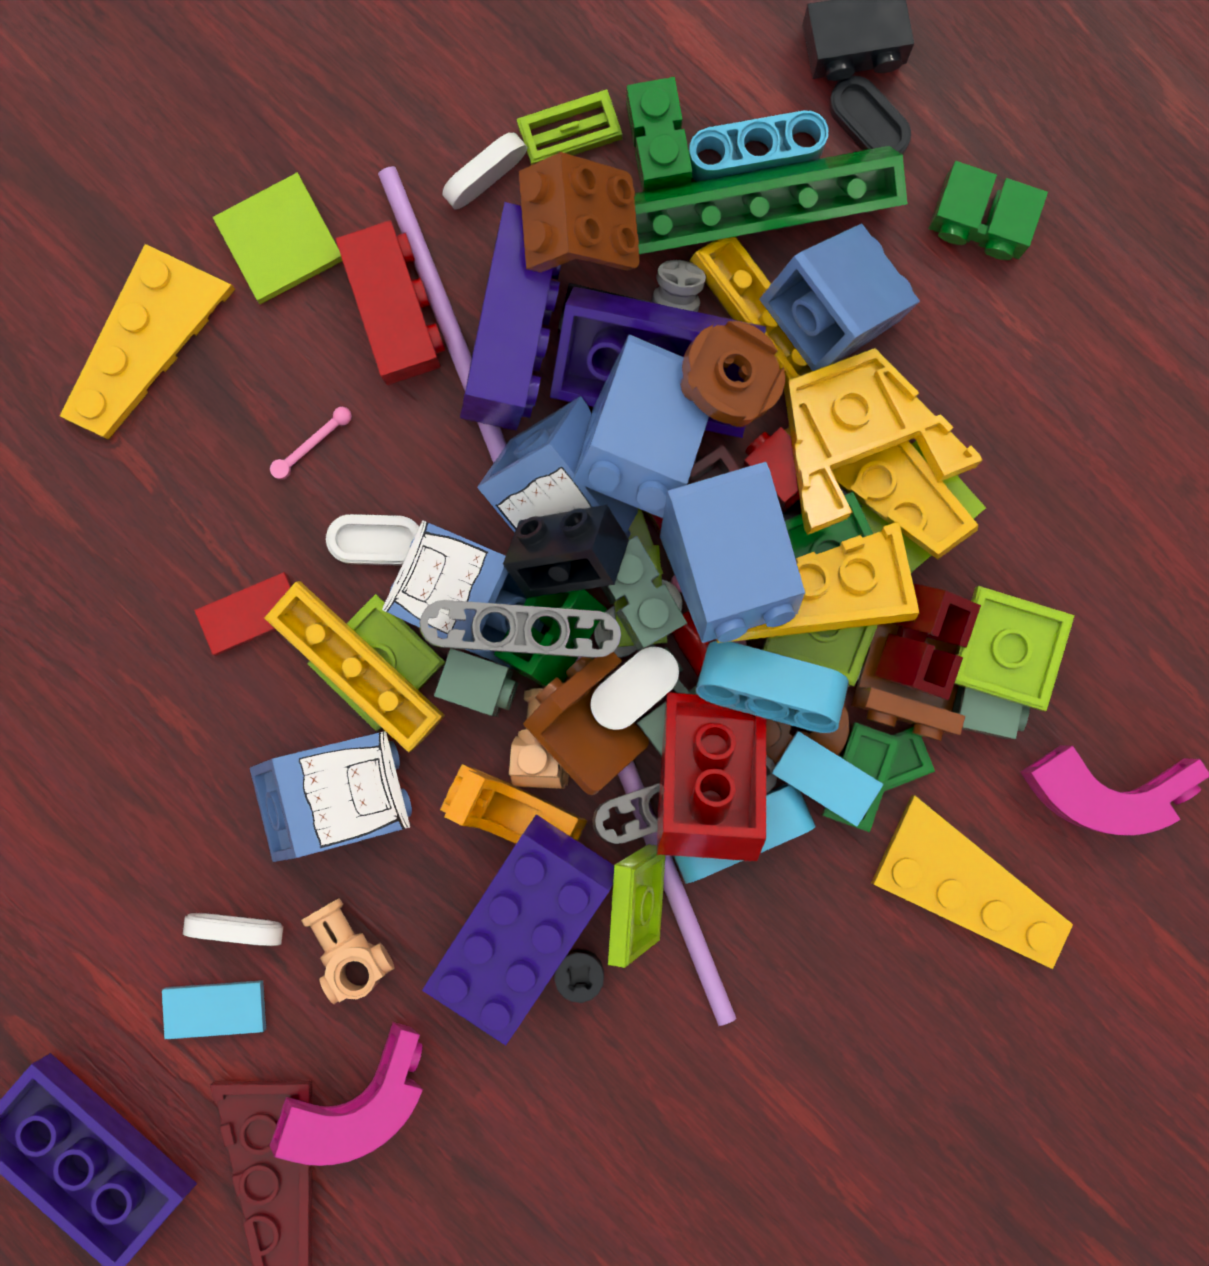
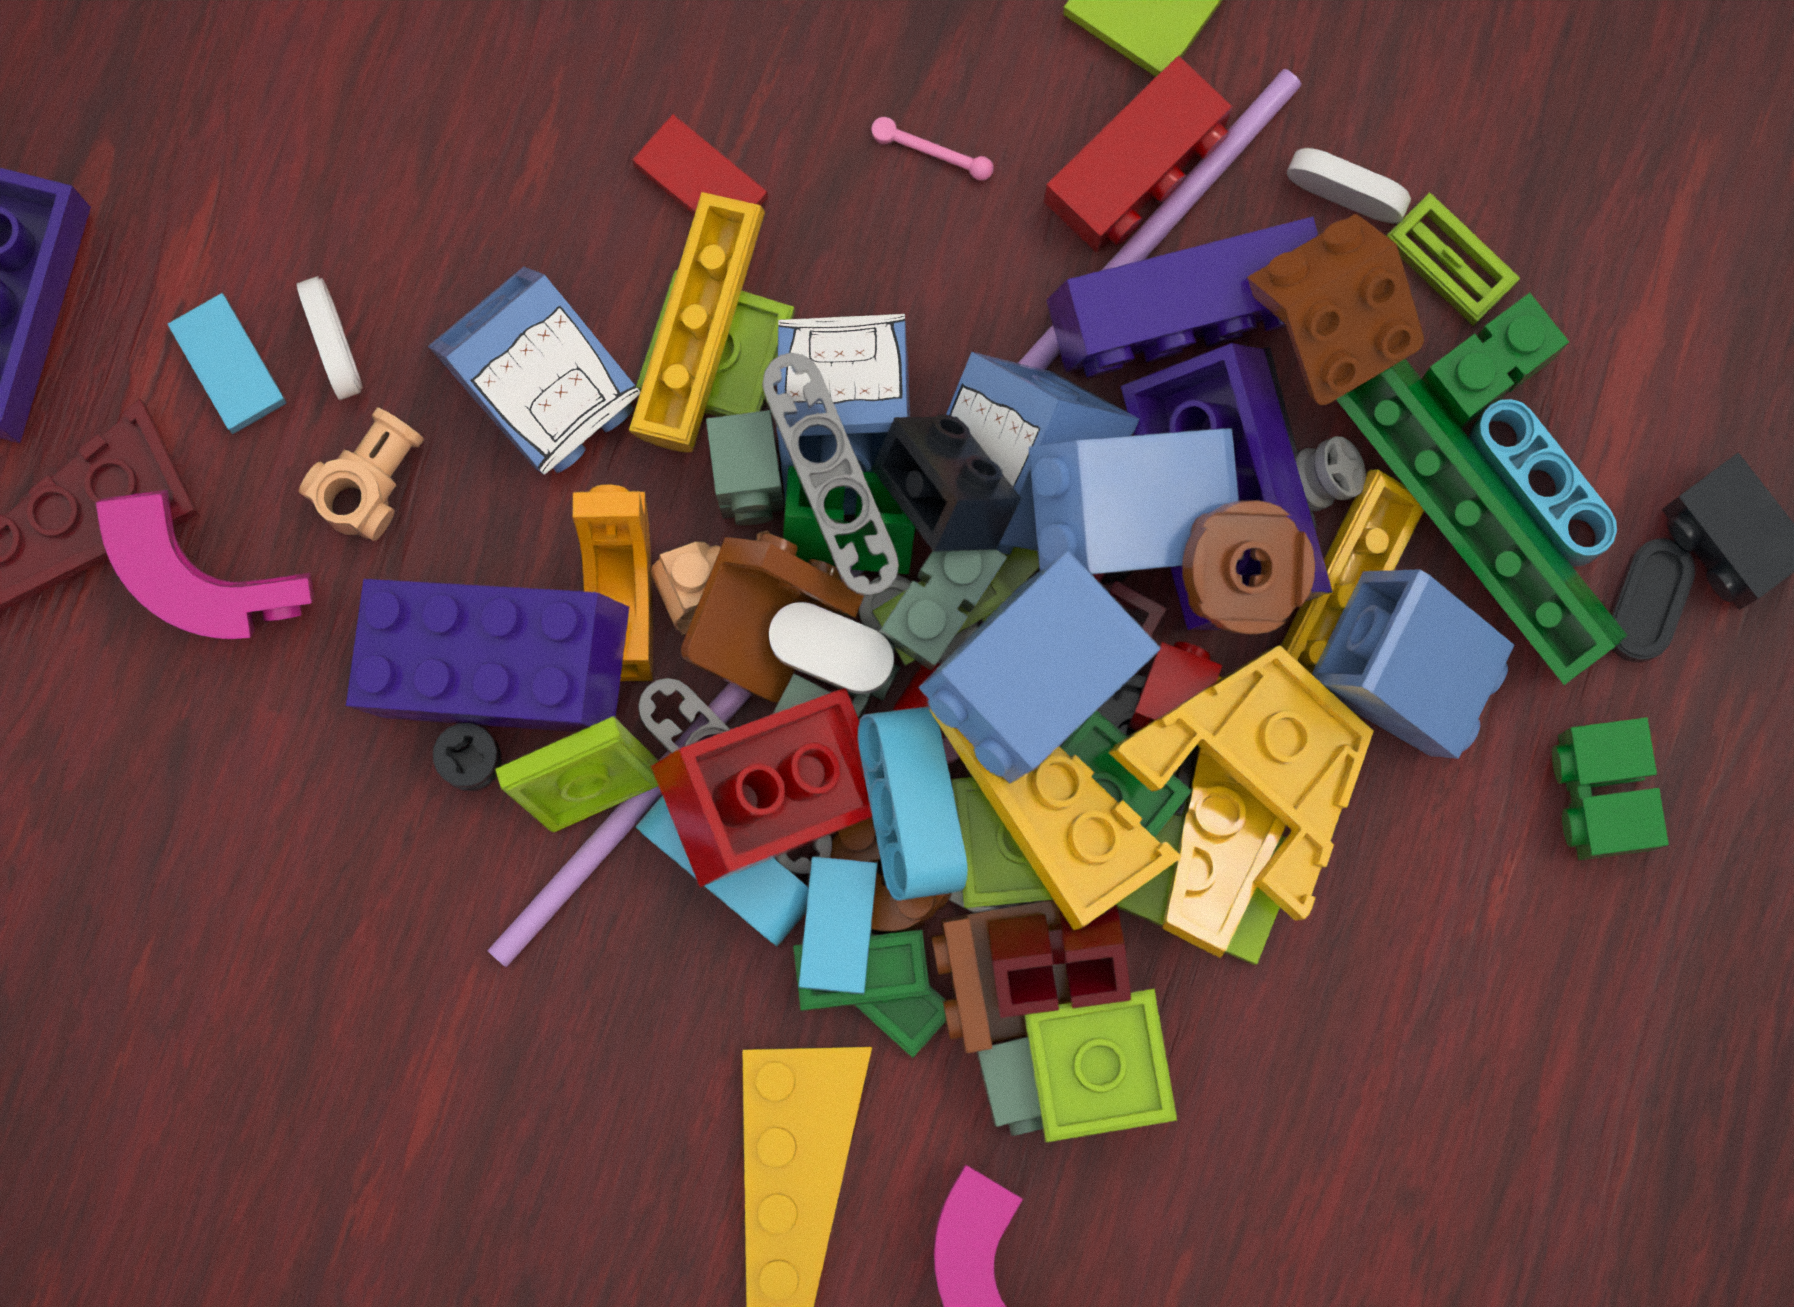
camera: 60 degrees right, 5 degrees down
(371, 539) = (854, 269): white tile -> none

